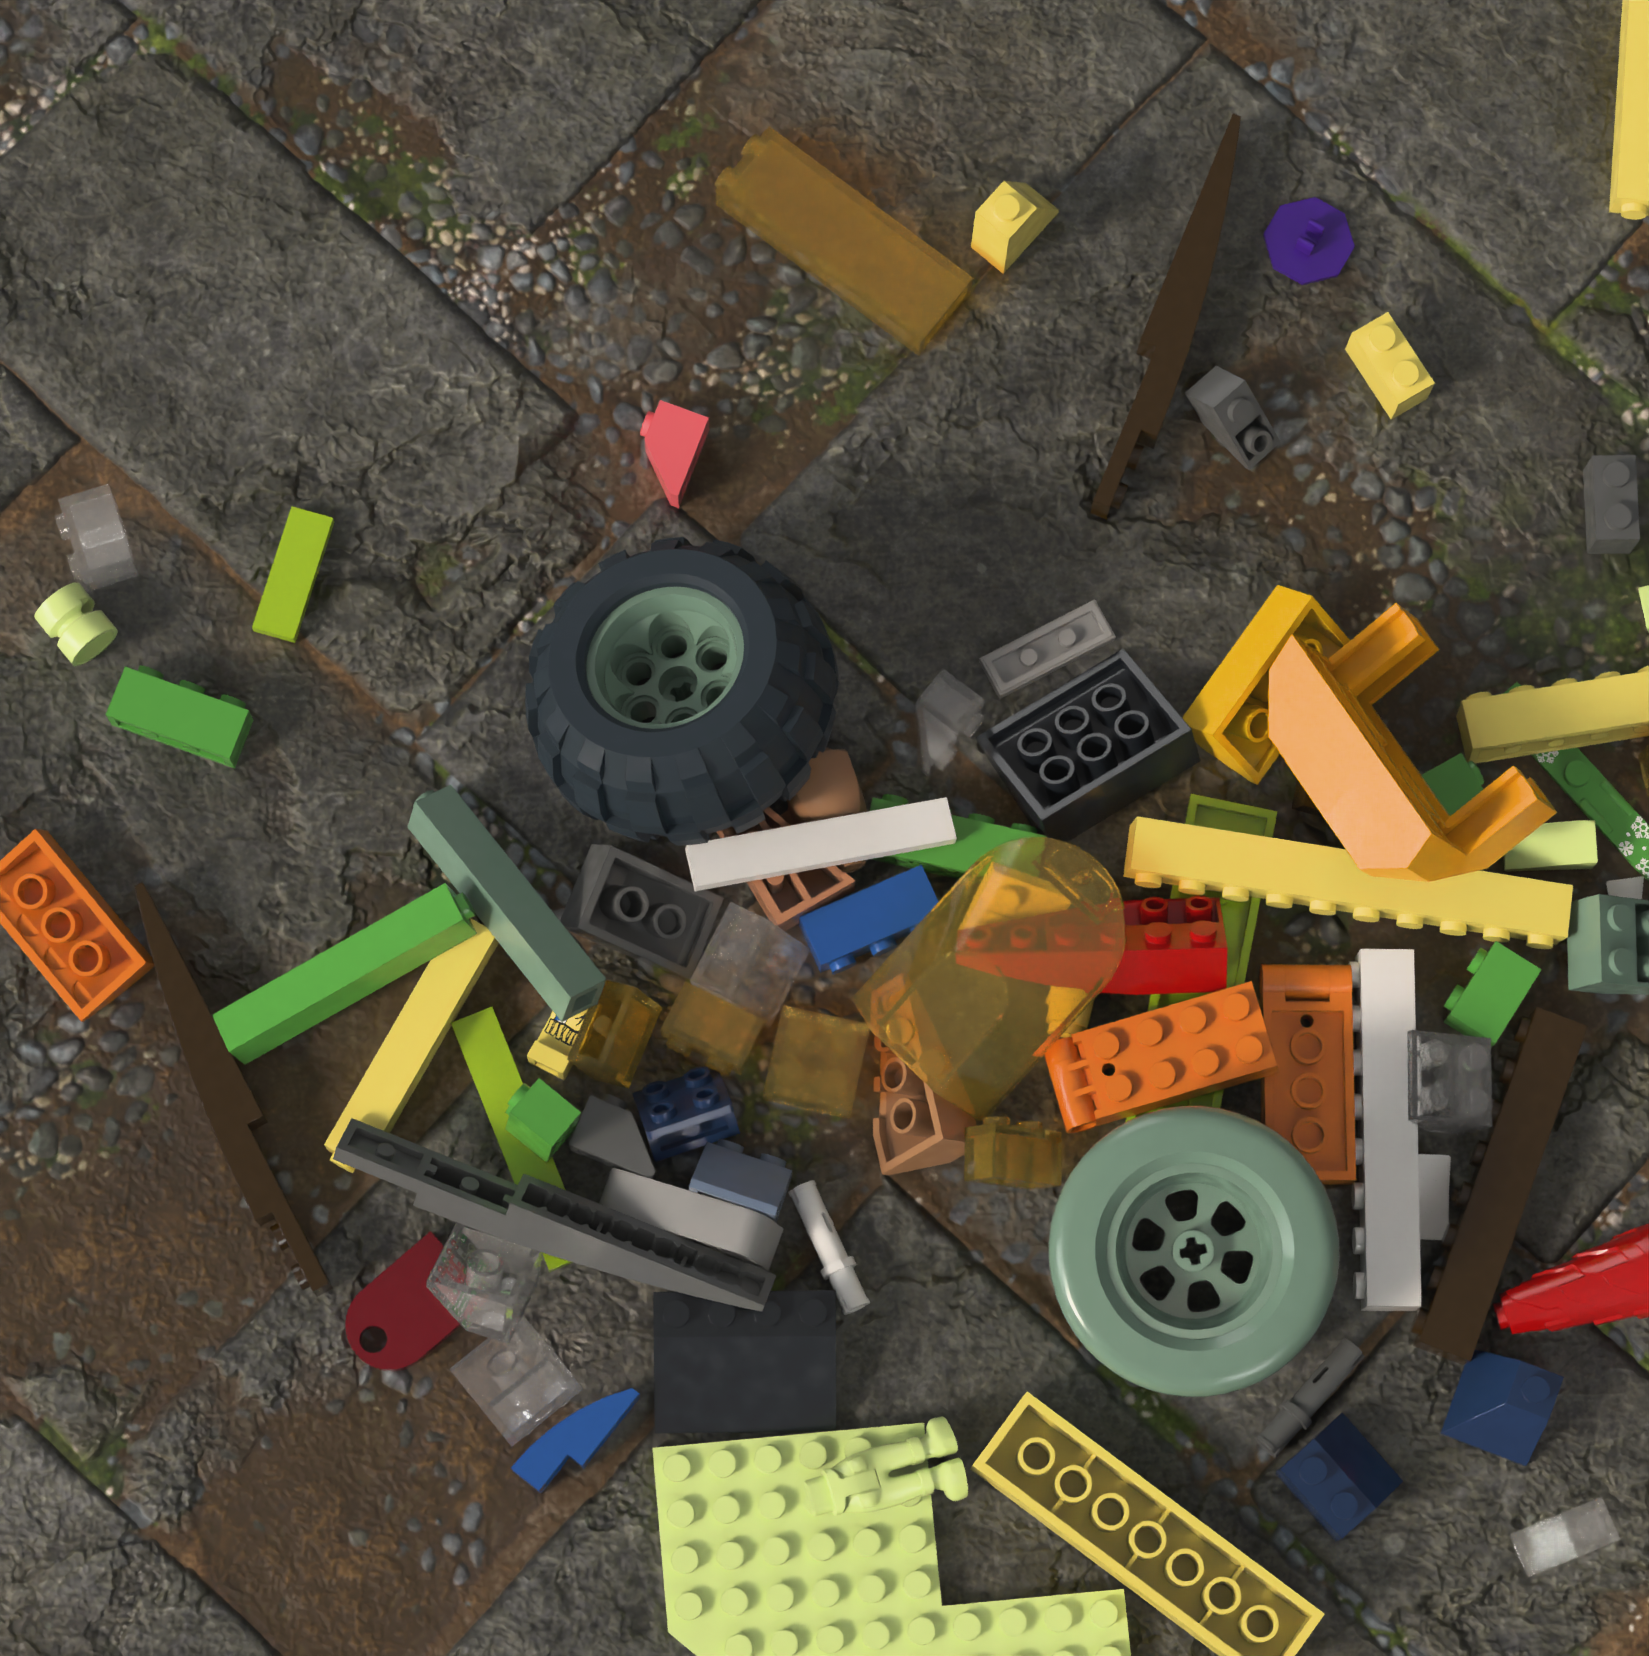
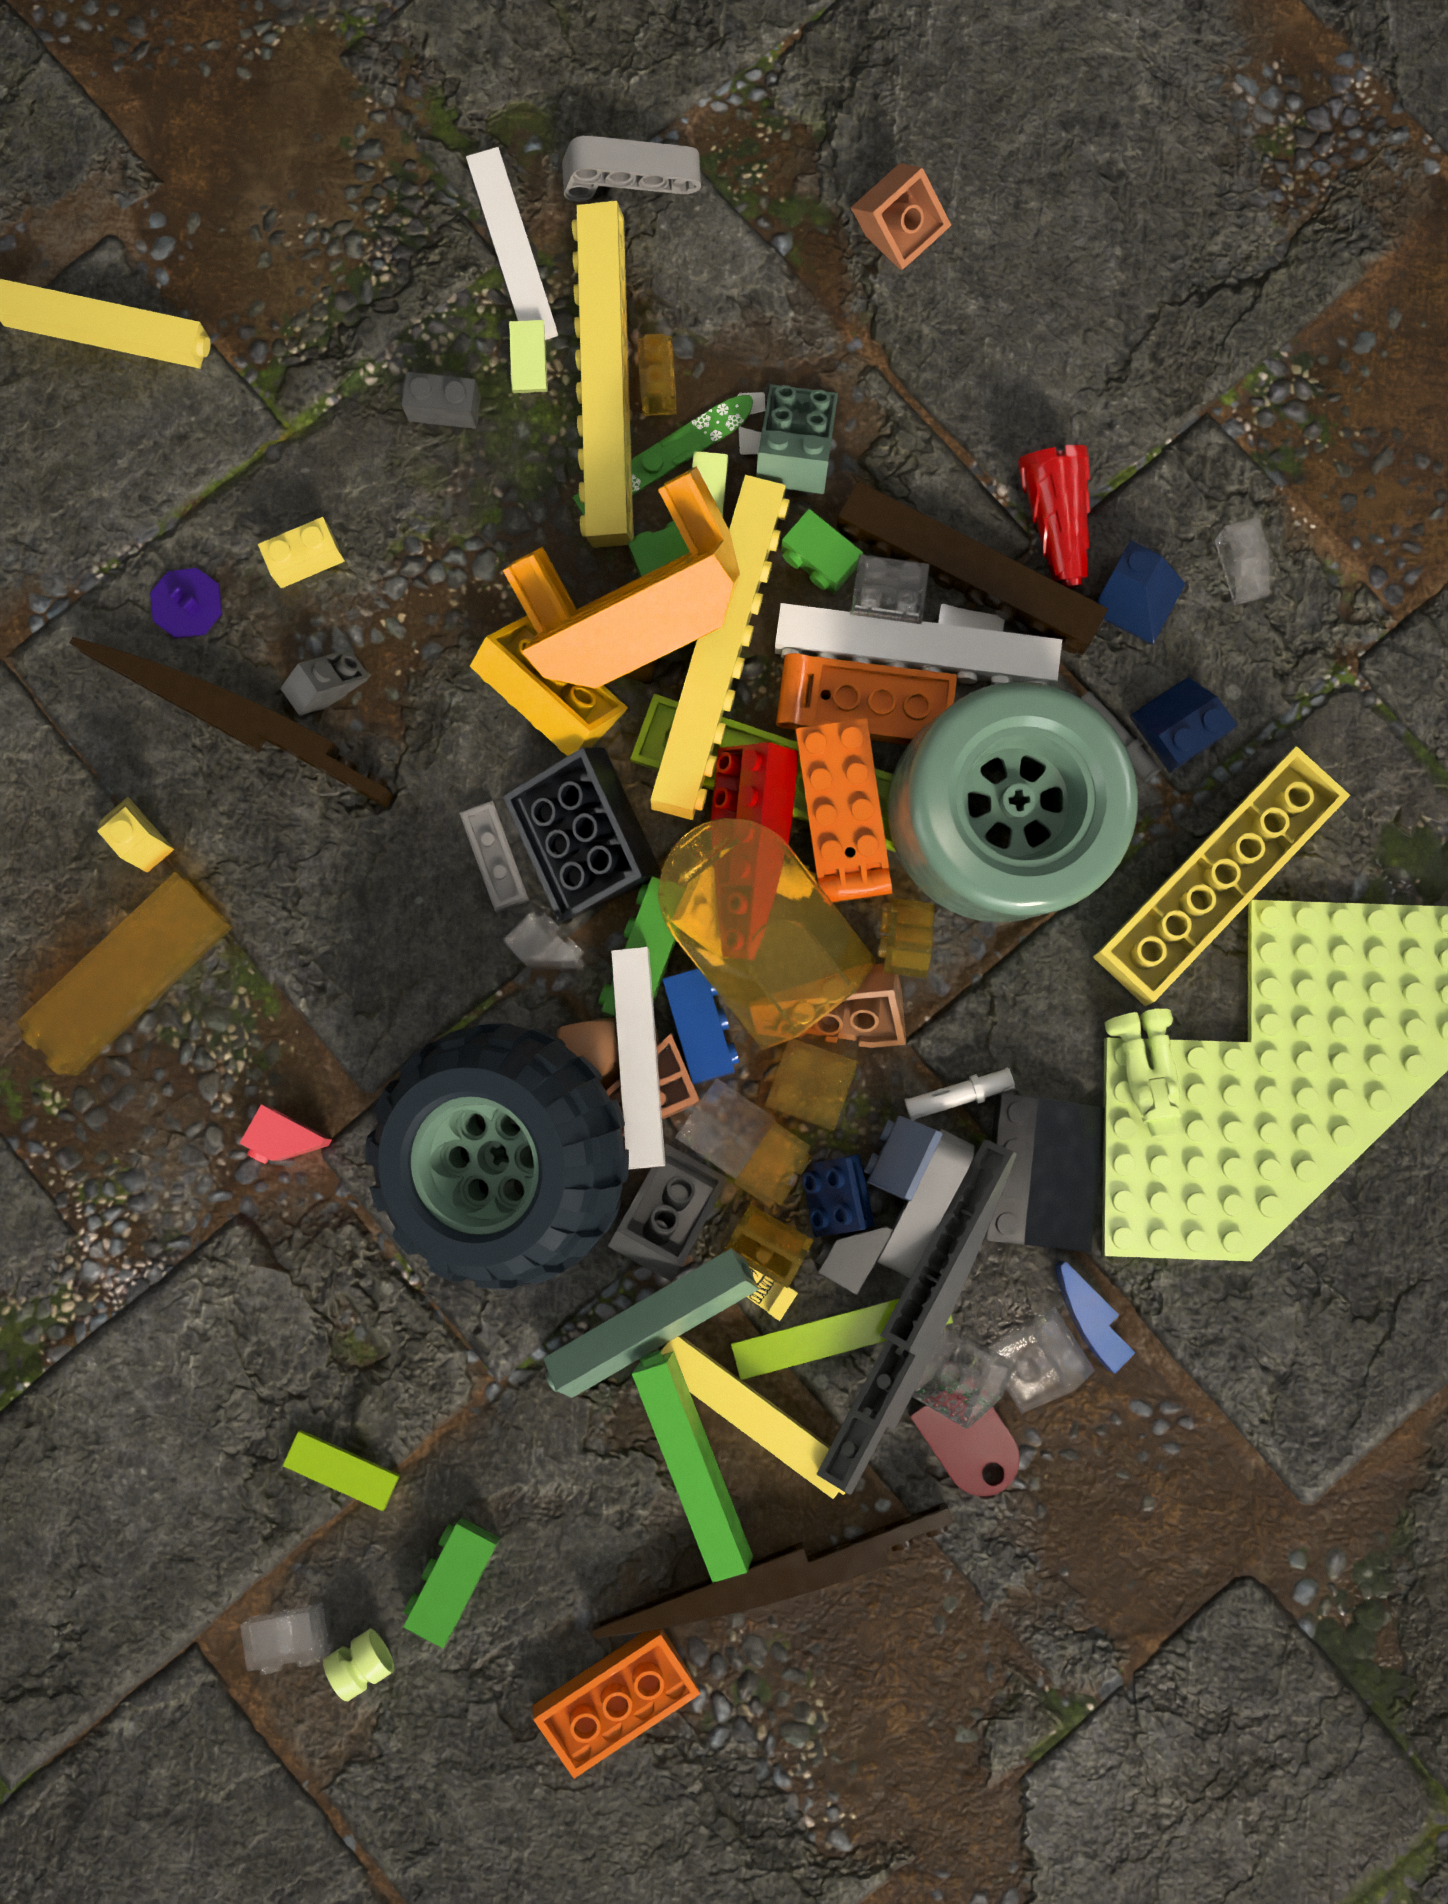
camera: 75 degrees left, 5 degrees up
(541, 1118) = (836, 1315): bright green brick -> none

